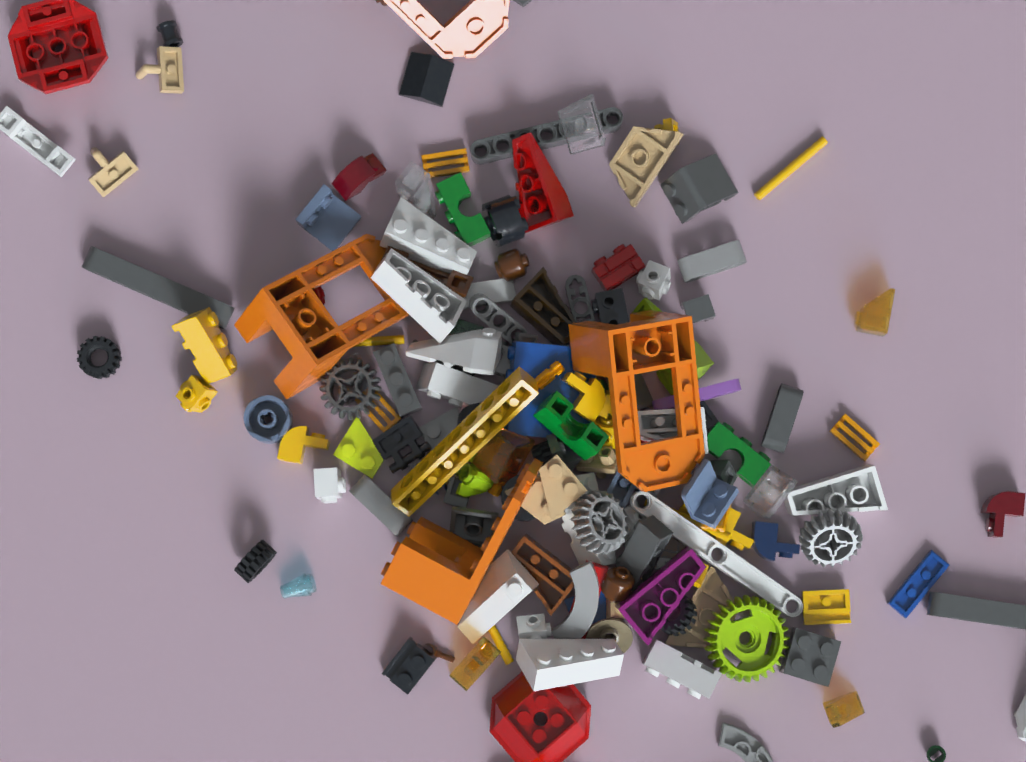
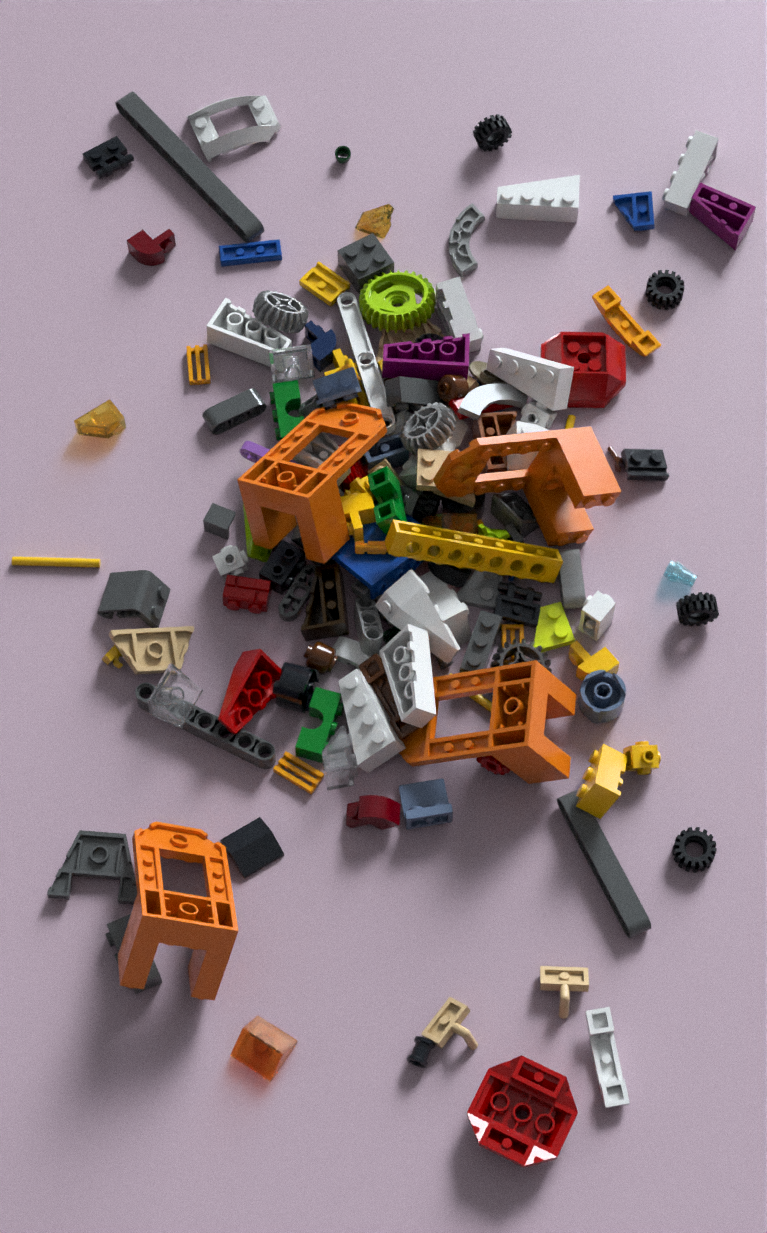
camera: 135 degrees left, 20 degrees down
(475, 663) = (605, 429): clear yellow slope -> none
(711, 261) = (176, 544): light grey beam -> none

